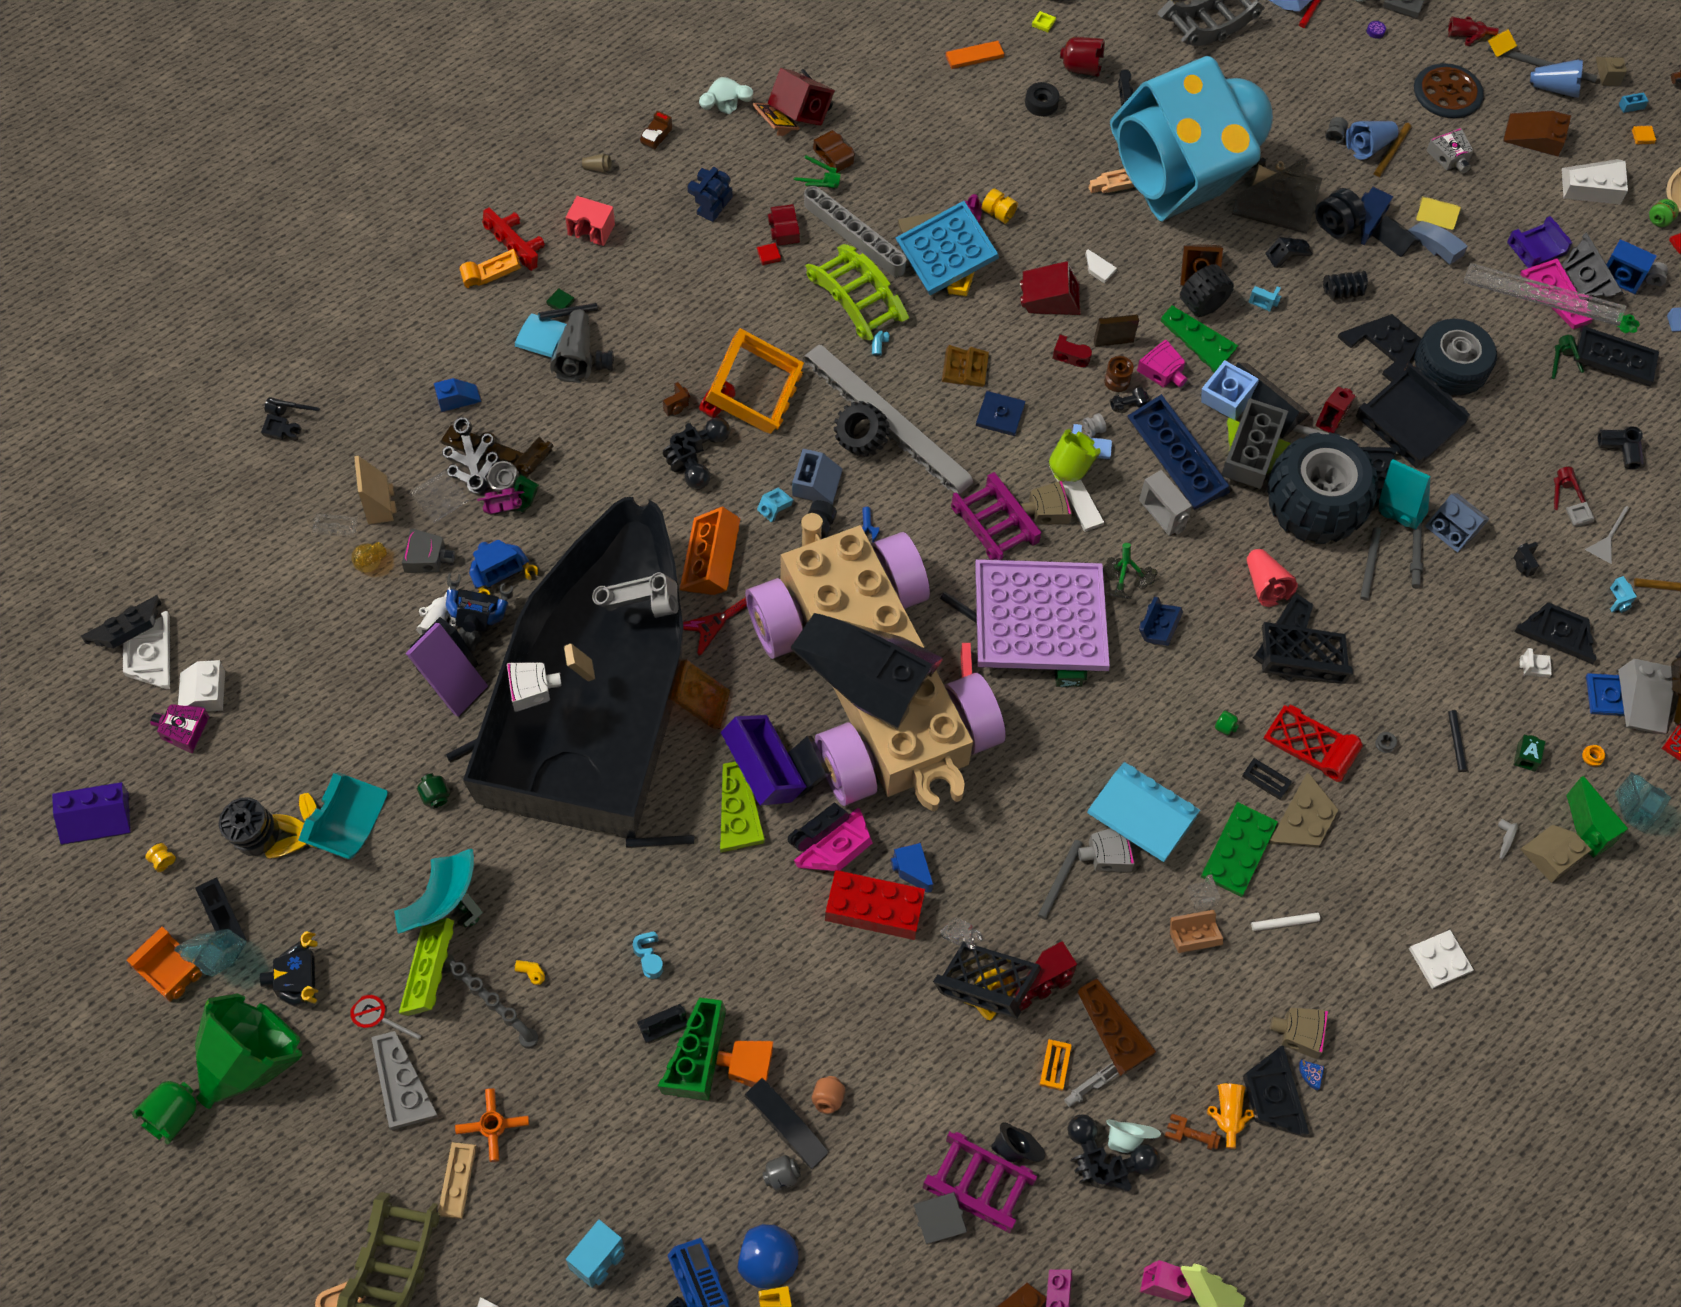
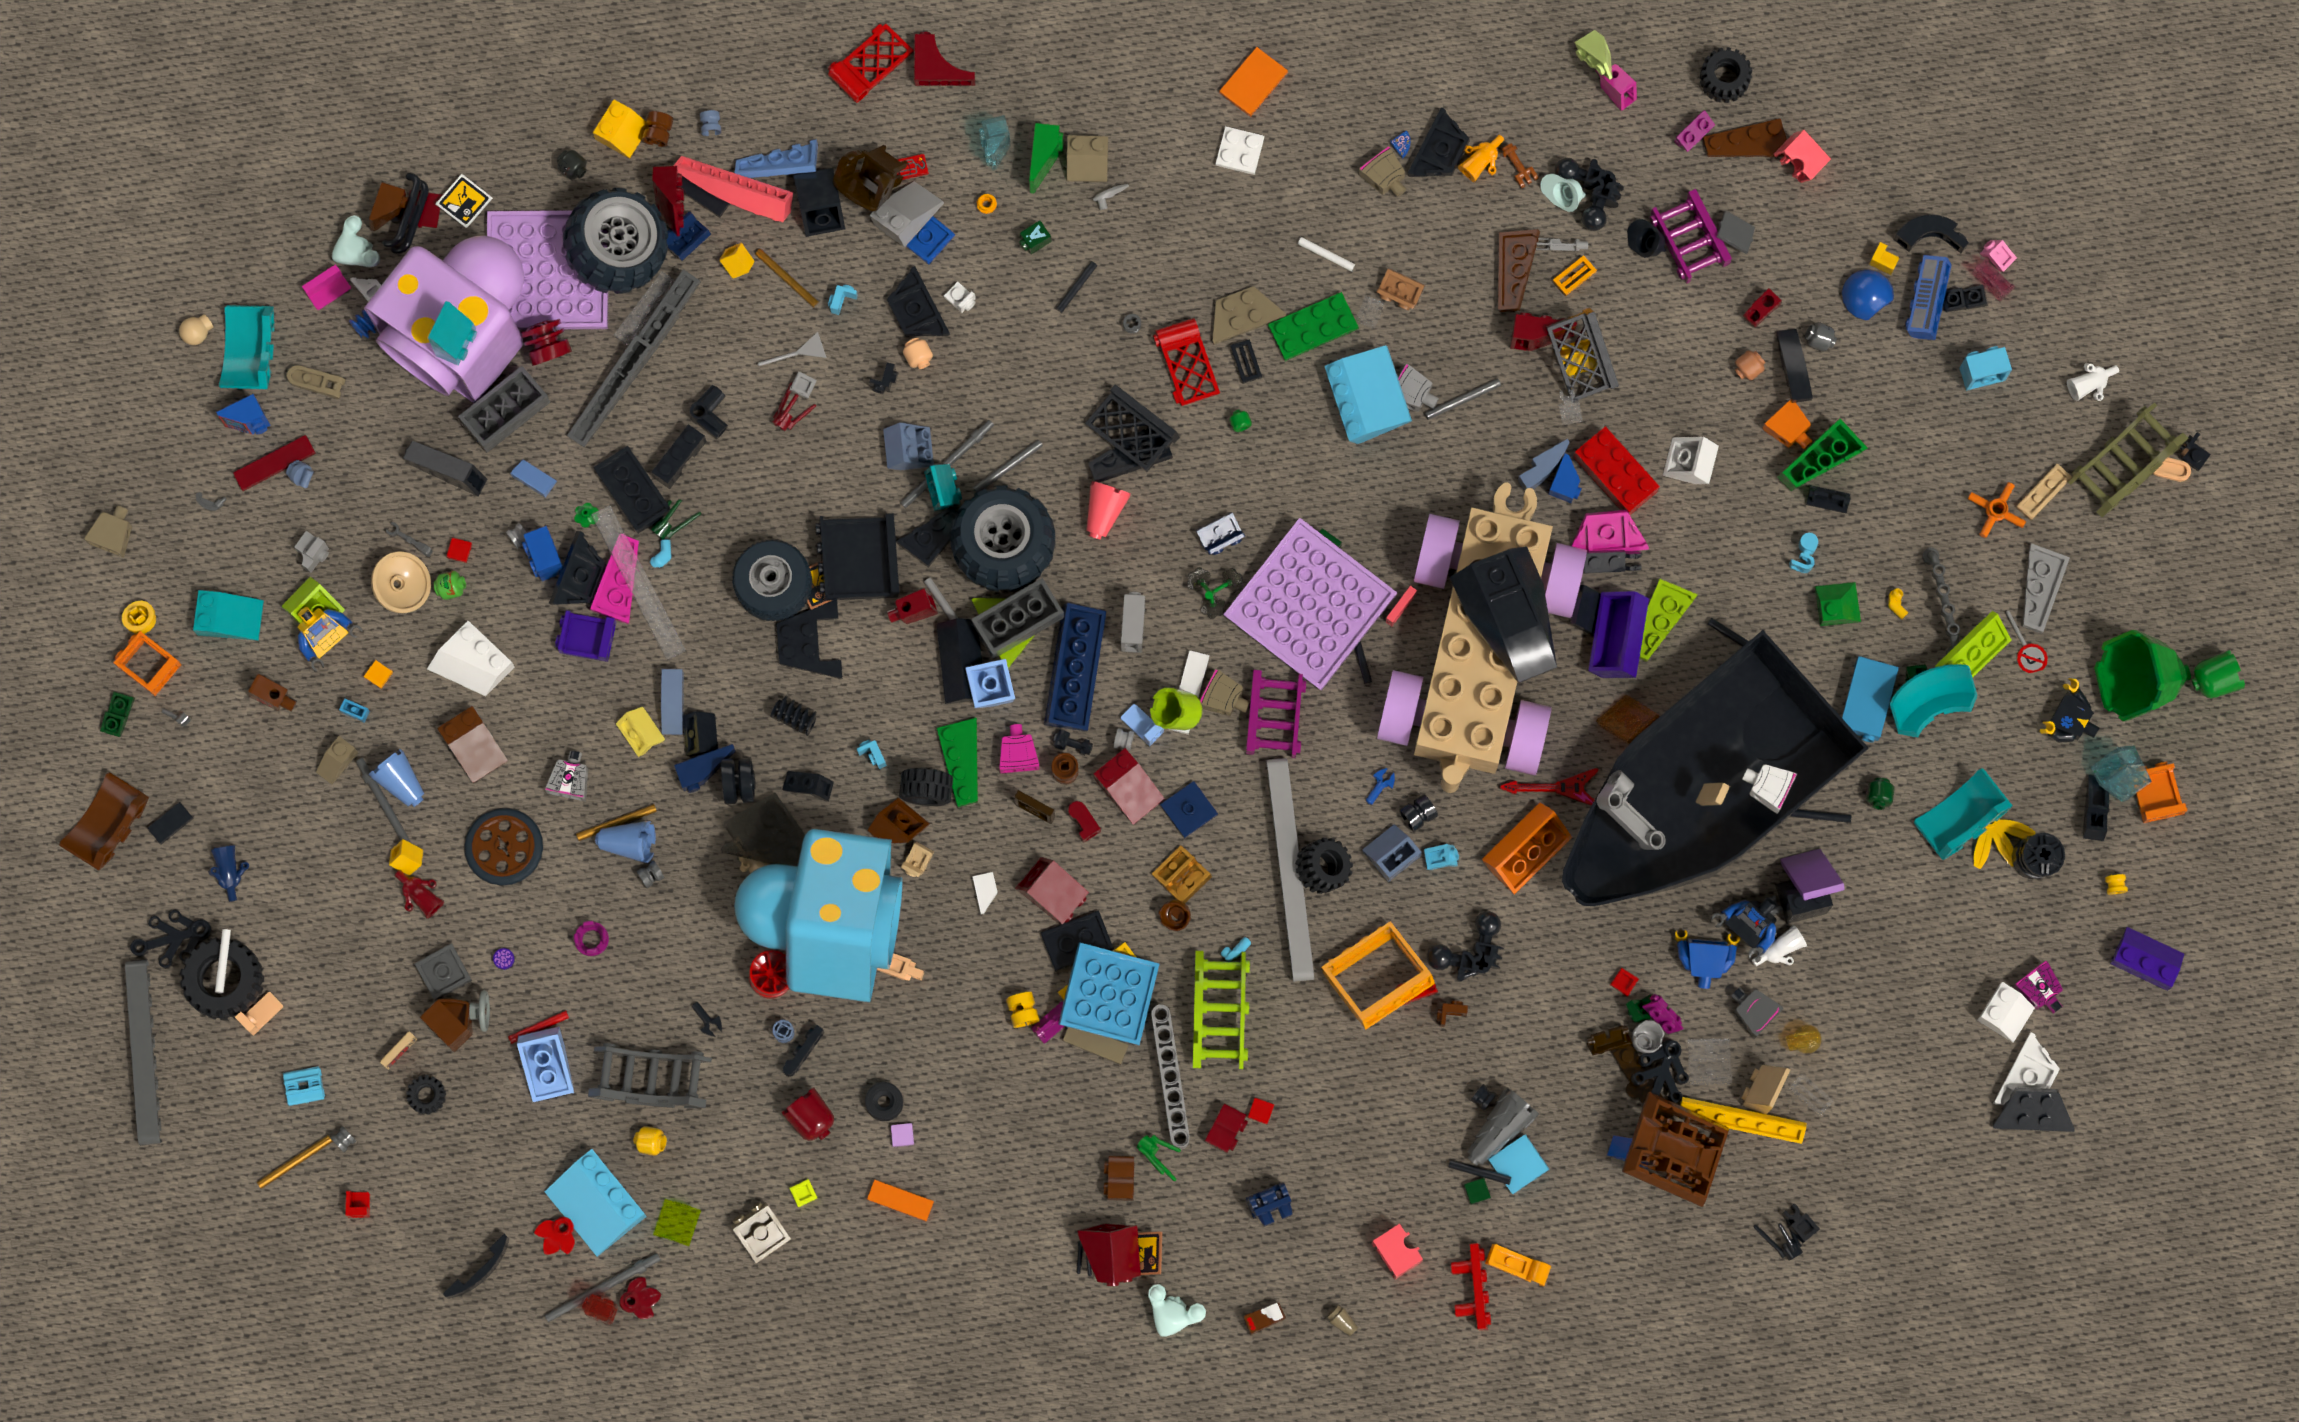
camera: 140 degrees left, 15 degrees up
(385, 467) = (1748, 1121): none -> yellow tile
(419, 404) = (1672, 1150): none -> reddish brown piece
(500, 864) = (1869, 697): none -> dark azure panel
(553, 510) = (1624, 982): none -> red tile
(586, 931) = (1837, 604): none -> green slope
(815, 965) = (1691, 459): none -> white slope
(857, 1162) = (1762, 307): none -> dark red leg
(942, 864) = (1543, 466): none -> sand blue slope
(946, 334) = (1179, 911): none -> reddish brown hair
(1001, 277) = (1064, 939): none -> black tile
(1010, 90) = (902, 1135): none -> lavender tile
(1061, 396) = (1128, 786): none -> slope
(1164, 250) = (917, 860): none -> tan bracket
(1339, 66) = (583, 929): none -> magenta piece
(1489, 1033) = (1253, 81): none -> orange tile
(1523, 593) = (917, 353): none -> light nougat head
(1545, 331) = (663, 556): none -> medium azure arm
(1614, 407) = (672, 463): none -> black arch

